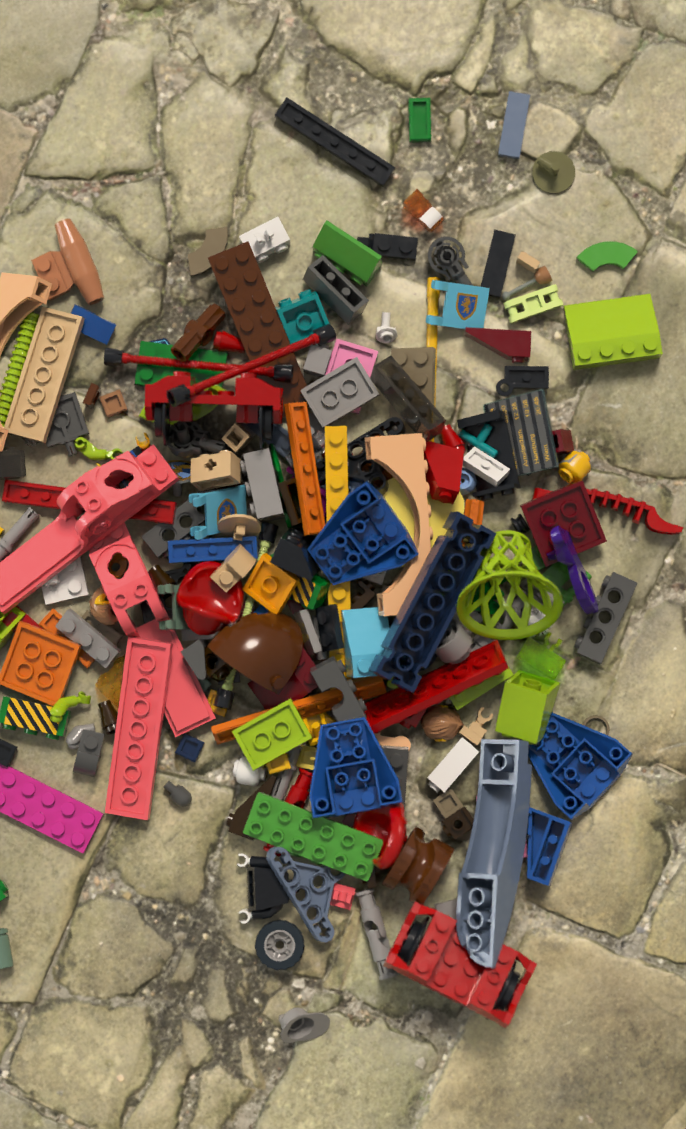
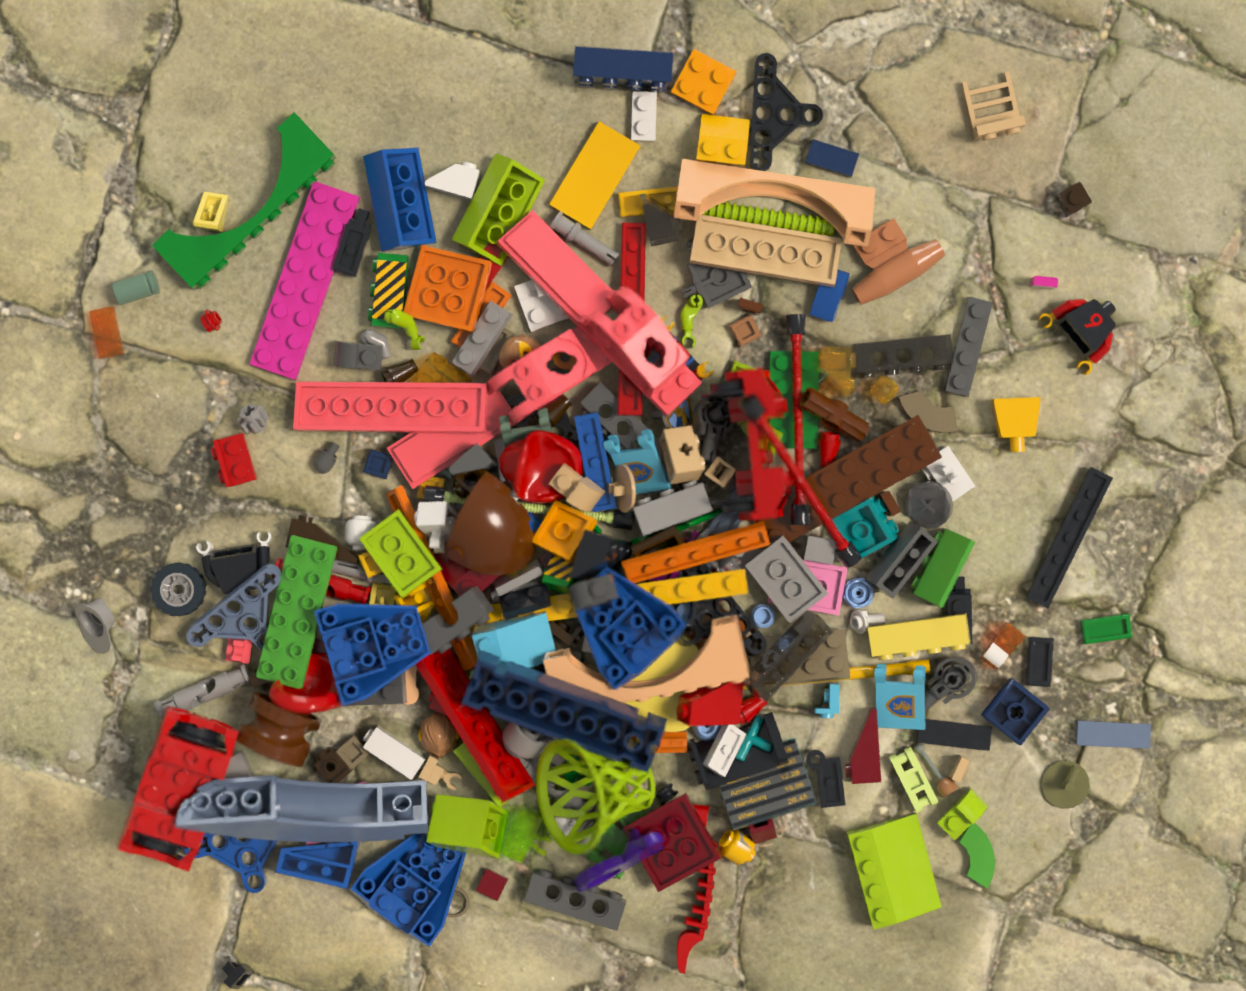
camera: 75 degrees right, 5 degrees up
(36, 101) = (1073, 199): none -> dark brown brick
(37, 981) = (106, 332): none -> clear orange plate
(38, 883) = (211, 320): none -> red plate
(106, 136) = (1044, 282): none -> dark pink tile
(133, 856) = (253, 418): none -> light grey gear
(149, 103) = (1086, 327): none -> black torso
(150, 233) = (940, 346): none -> clear smoke brick
(154, 209) = (968, 346): none -> dark grey plate
(158, 325) = (836, 367): none -> clear yellow slope
(169, 878) = (233, 460): none -> red bracket
(182, 292) = (876, 389): none -> clear yellow brick
(224, 174) = (1016, 419): none -> yellow torso
(248, 698) = (436, 522): none -> white brick
(286, 292) = (890, 503): none -> reddish brown tile
(289, 259) = (929, 504): none -> flat silver tile
(328, 562) = (592, 593): none -> dark grey brick
(360, 325) = (861, 600): none -> light blue plate
(370, 418) = (763, 616): none -> light blue plate
(404, 281) = (919, 634): none -> light yellow brick
(441, 181) = (1039, 661): none -> black tile
(450, 366) = (831, 696): none -> medium azure bracket
(480, 193) = (999, 712): none -> dark blue brick
(523, 923) = (232, 854): none -> blue beam
(568, 263) = (962, 814): none -> lime brick
(583, 692) = (492, 884): none -> dark red tile
(639, 935) = (236, 974): none -> black tile

